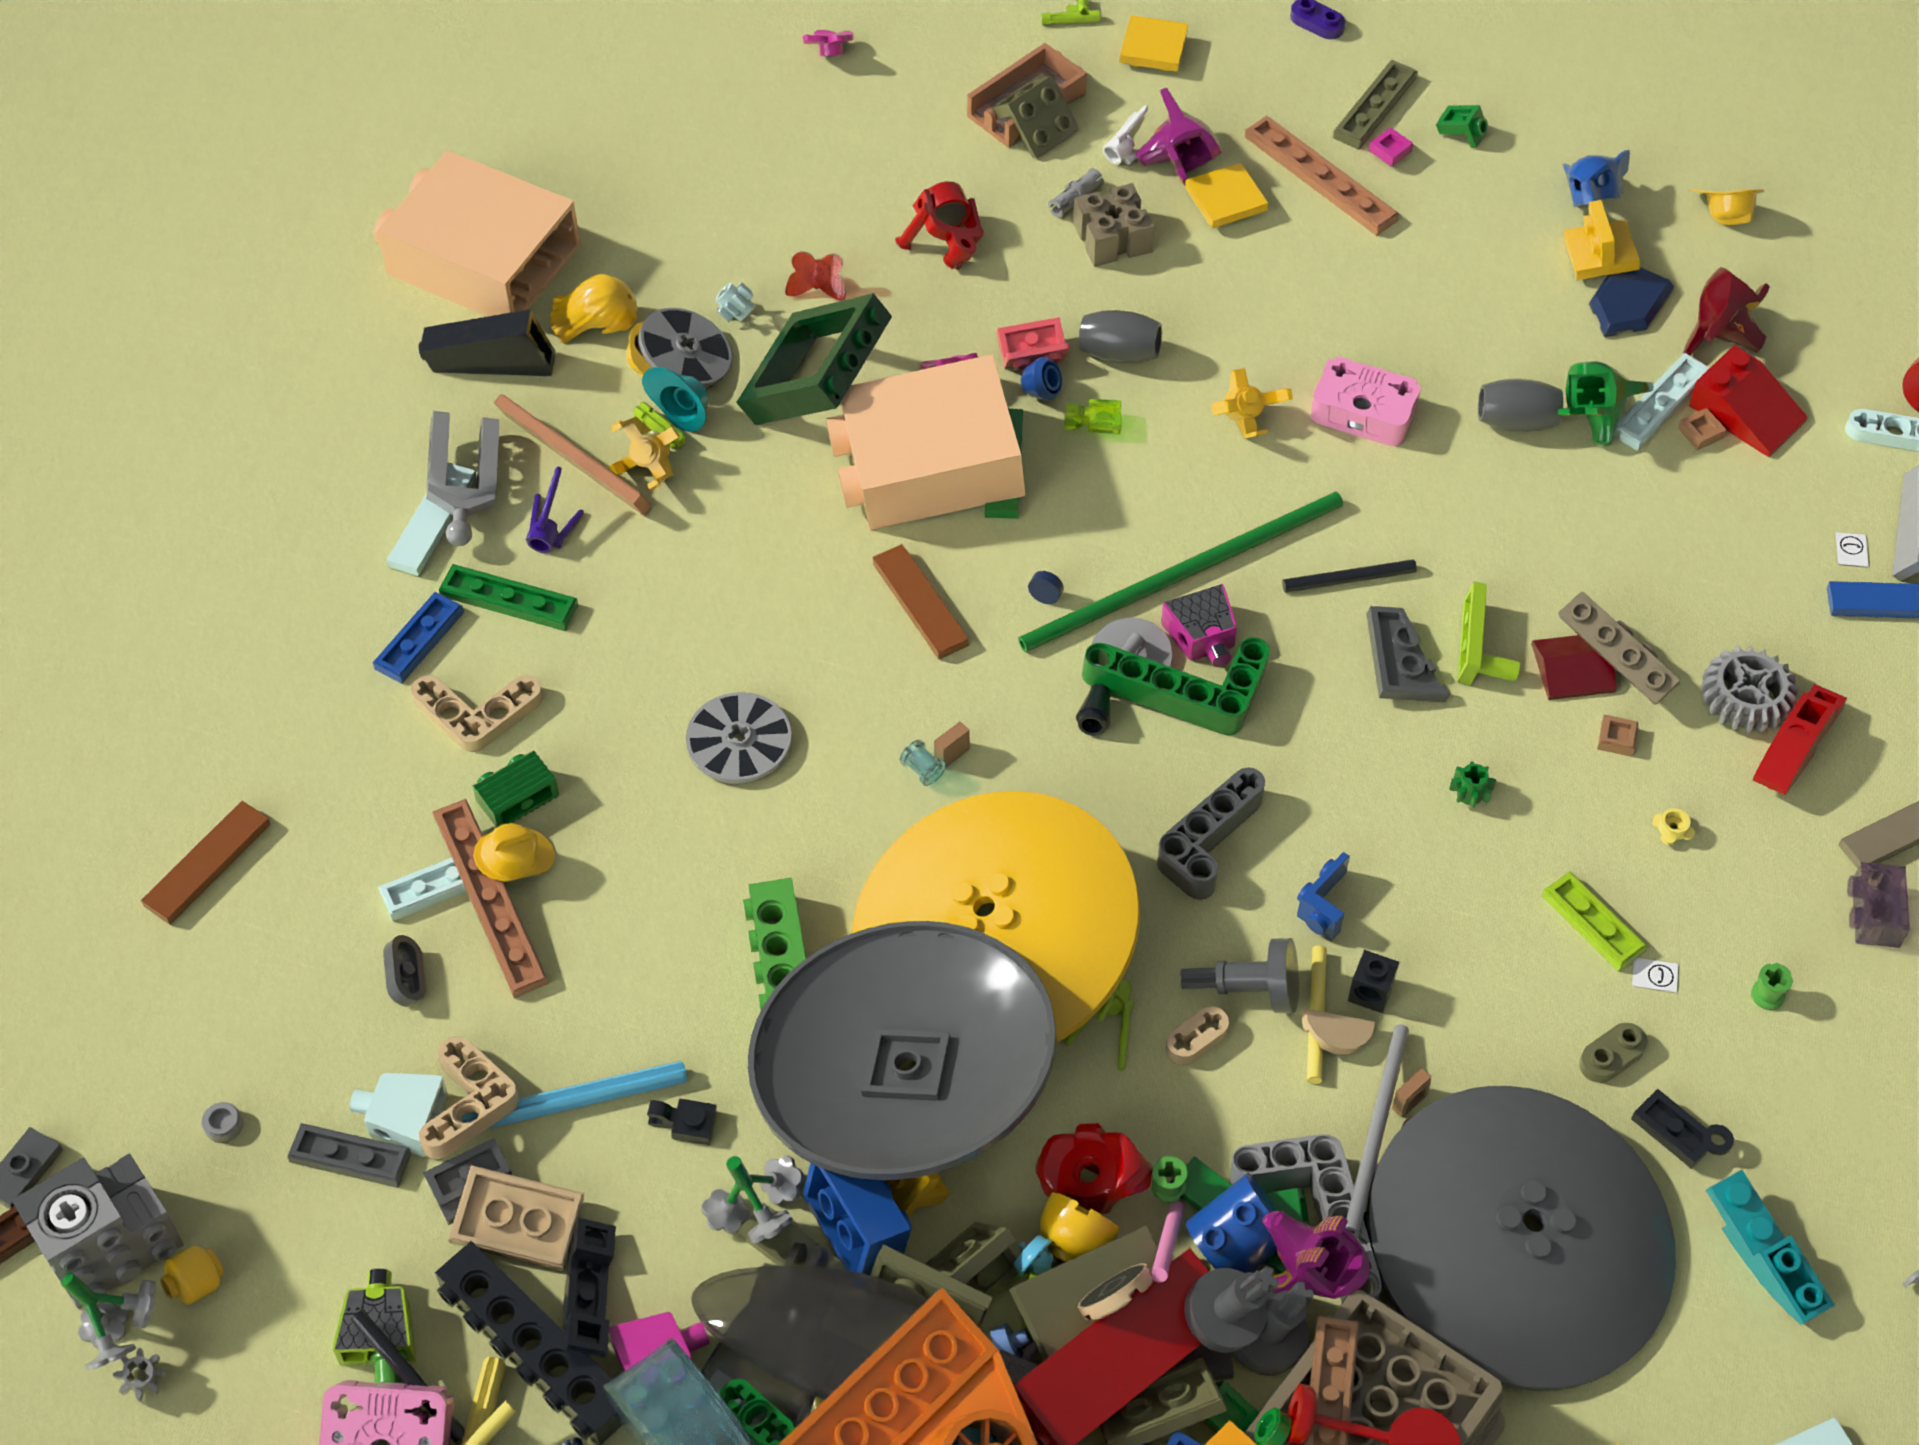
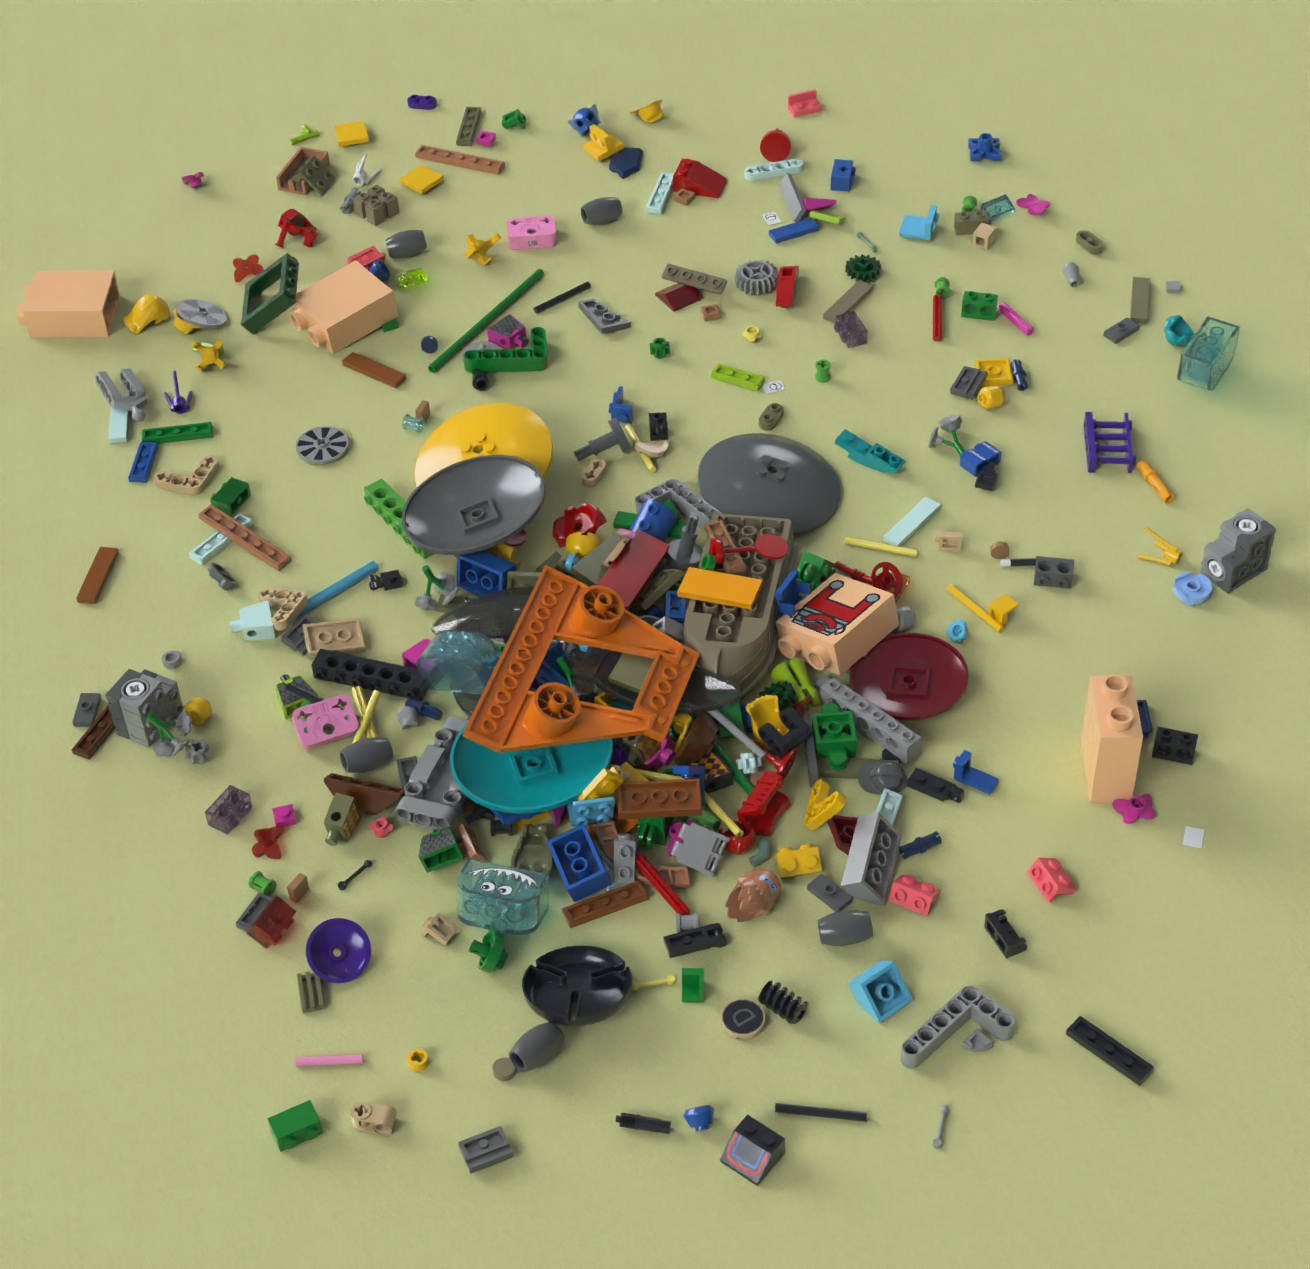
camera: 25 degrees left, 10 degrees down
(349, 1155) = (240, 648): dark grey tile -> none
(489, 345) = (104, 343): black slope -> none
(513, 853) = (245, 515): yellow piece -> none
(573, 454) = (167, 369): nougat tile -> none
(586, 1288) = (380, 648): black slope -> none
(678, 396) = (210, 330): teal piece -> none
(735, 301) = (214, 289): light aqua gear -> none
(1117, 1002) = (552, 473): lime plant -> none
(1169, 1167) = (613, 518): bright green bush -> none
(1181, 140) = (388, 163): magenta piece -> none
(1215, 825) = (551, 407): dark grey beam -> none
(1229, 1307) = (665, 542): dark grey piece -> none
(1321, 1256) = (693, 503): magenta piece -> none
(1376, 1129) = (690, 472): light grey piece -> none
(1411, 1092) = (696, 457): medium nougat tile -> none
(1471, 642) = (630, 300): lime piece -> none
(1600, 394) = (634, 192): green piece -> none
(1679, 1130) = (812, 430): black hinge -> none
(1726, 313) = (671, 149): dark red piece -> none

